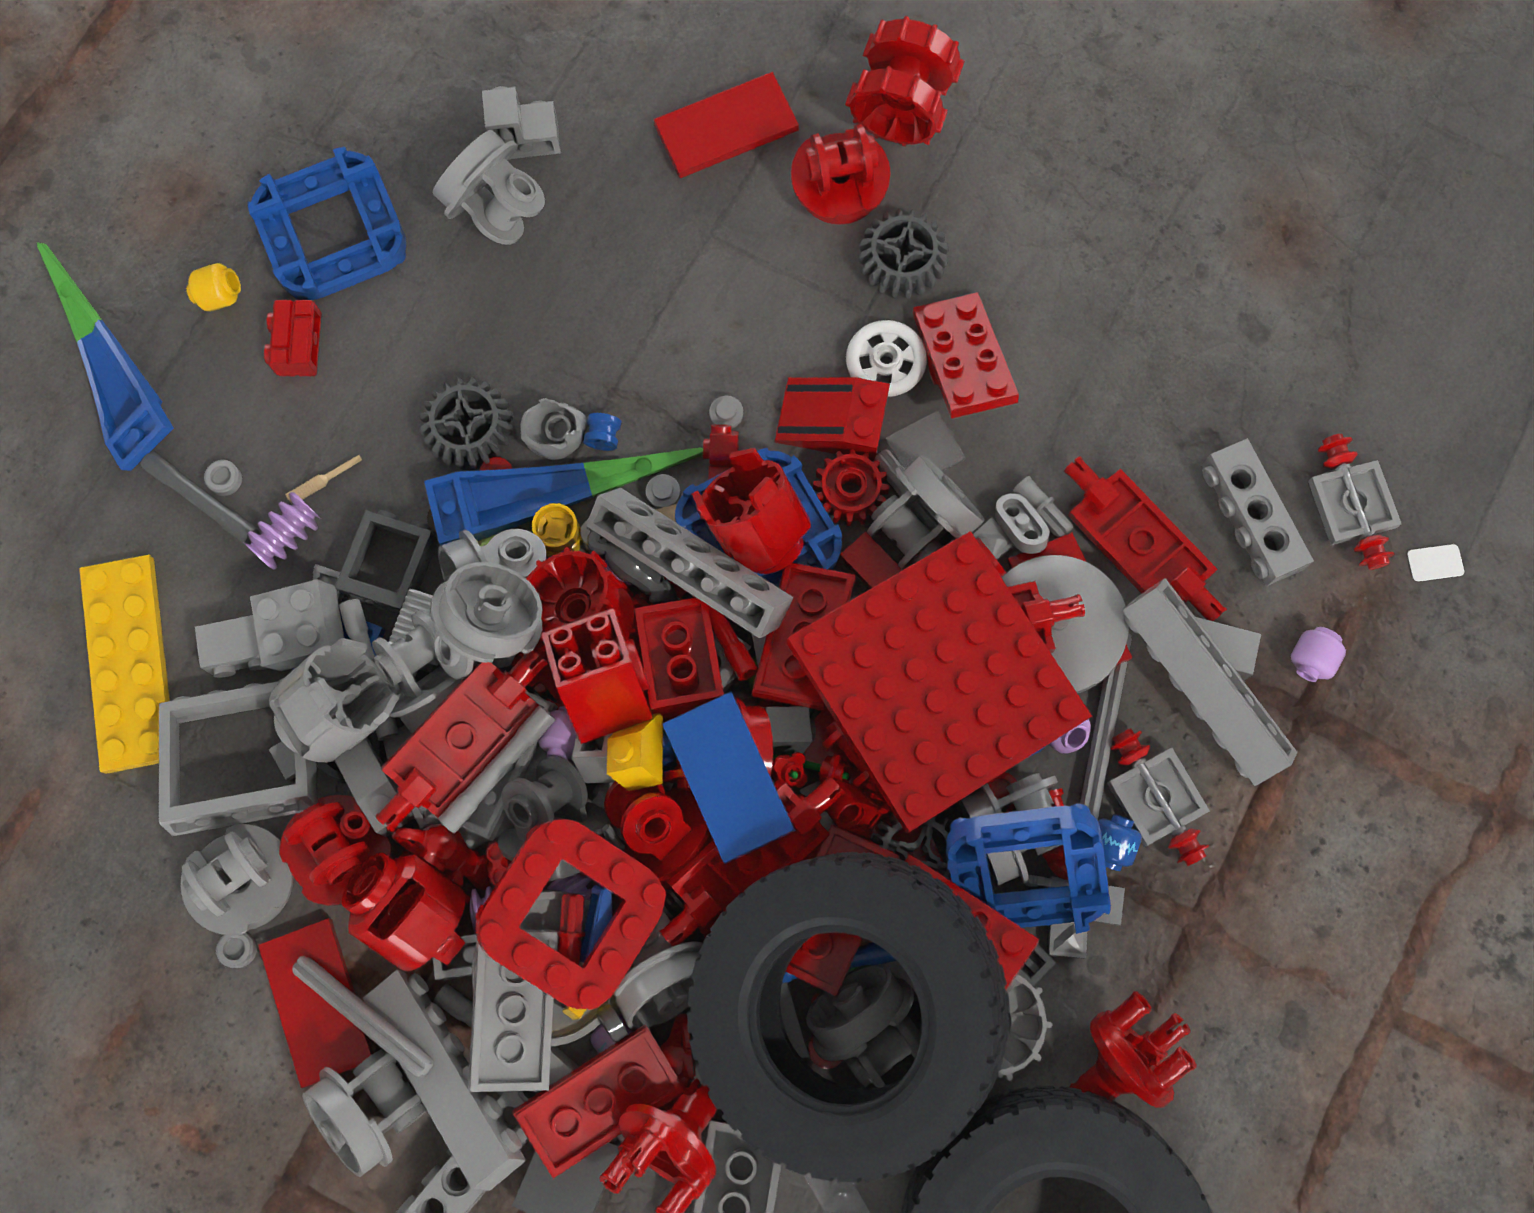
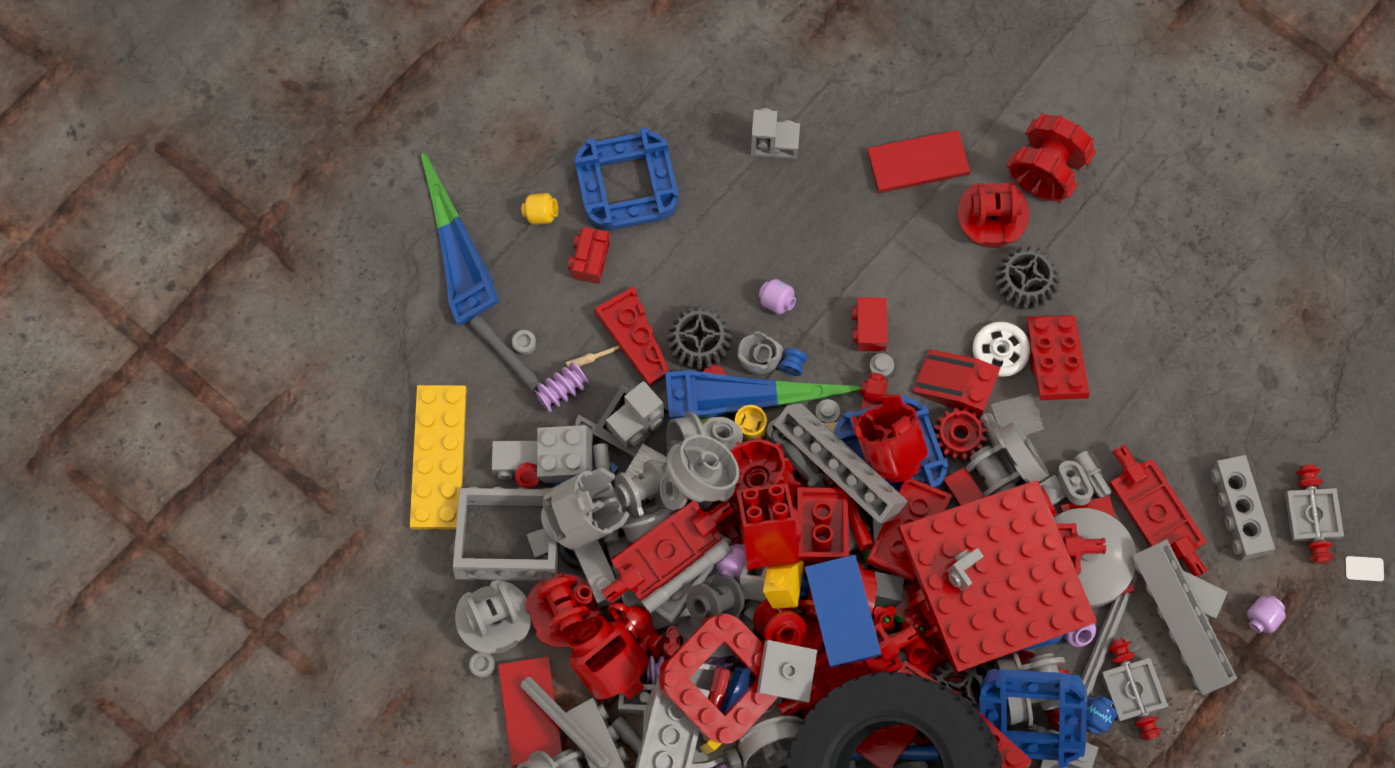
camera: 10 degrees right, 5 degrees down
(248, 666) = (527, 475): none -> red tile
(367, 429) = (629, 328): none -> red wing
(390, 552) = (640, 413): none -> light grey brick
(467, 183) = (762, 183): light grey piece -> none
(564, 345) = (777, 296): none -> lavender head
(662, 883) = (787, 671): none -> light grey plate
(700, 357) = (870, 324): none -> red brick
(889, 670) = (957, 571): none -> light grey bracket

